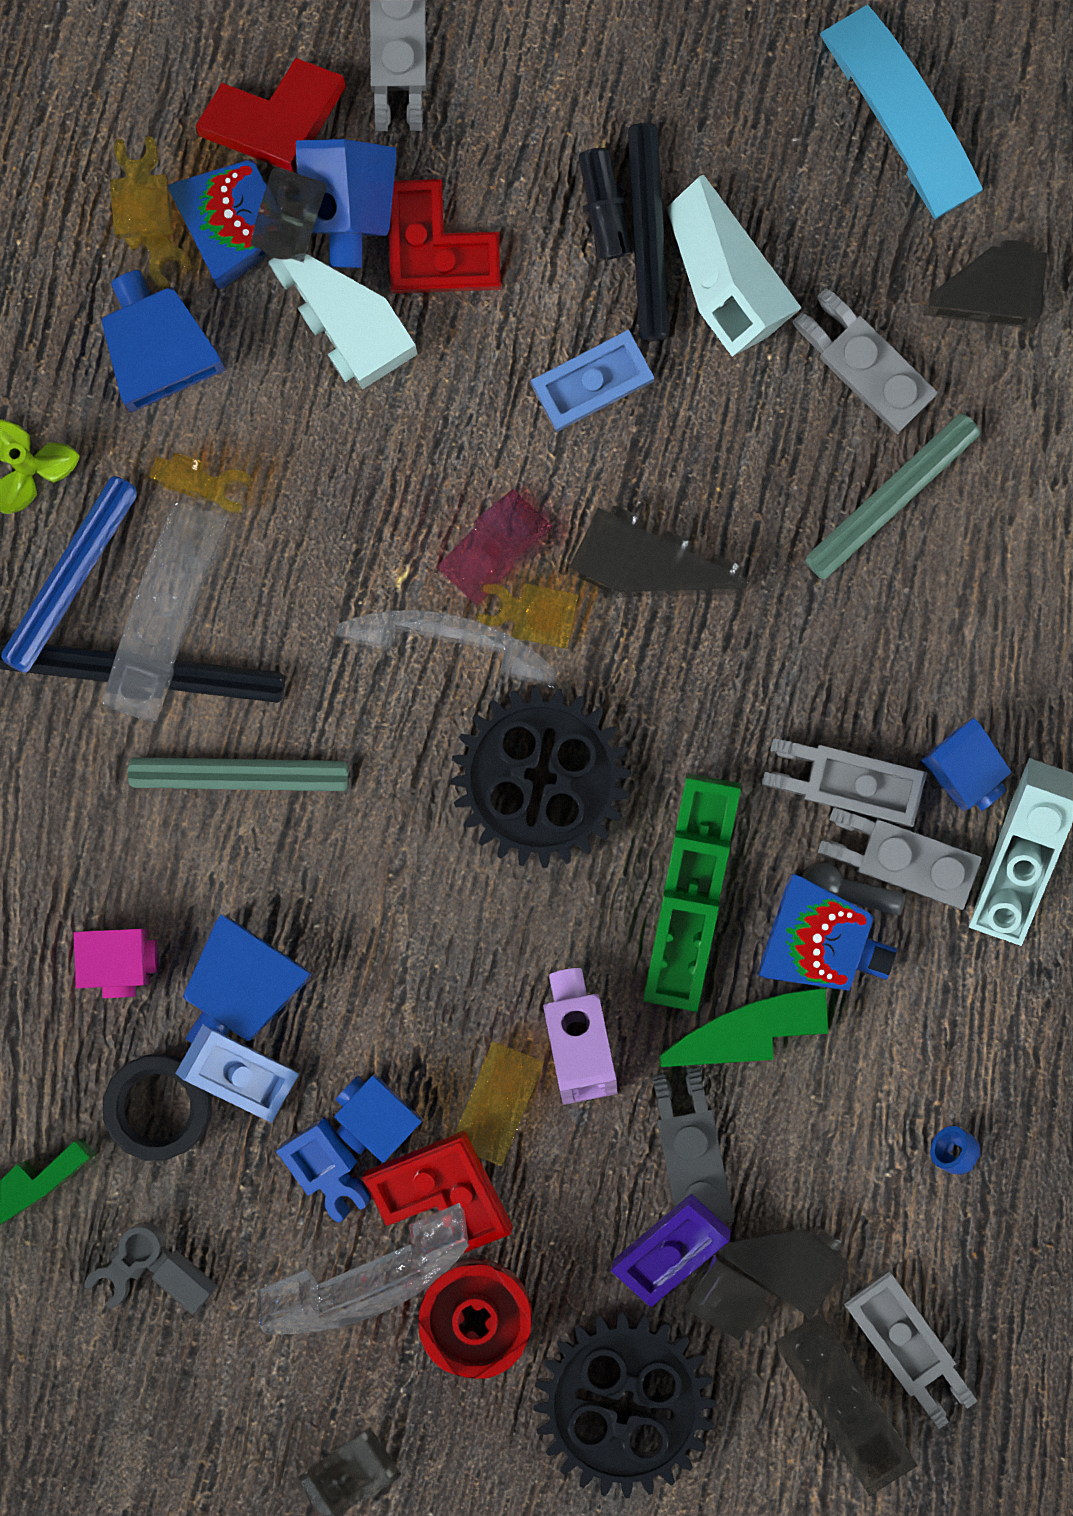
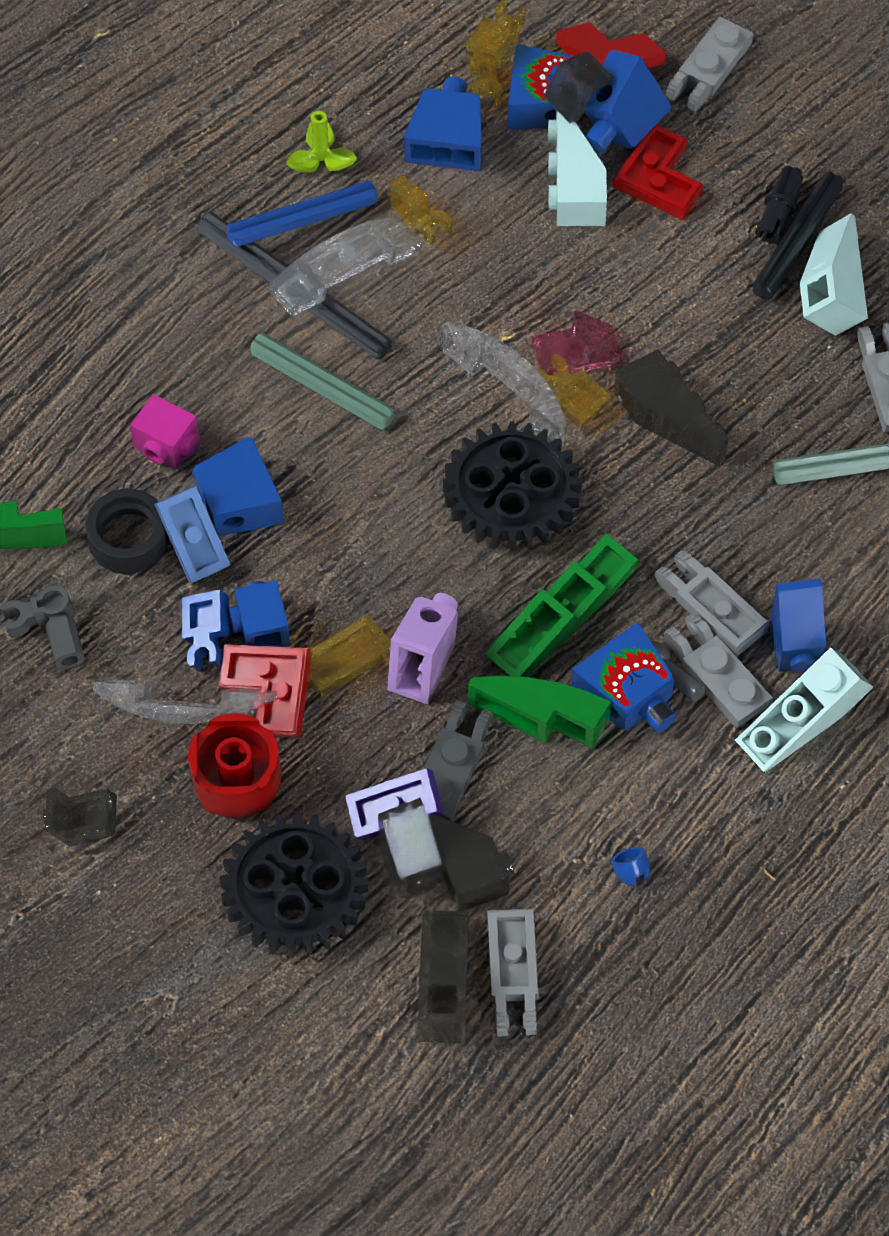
camera: 30 degrees right, 25 degrees down
(592, 381) = (705, 291): medium blue plate -> none

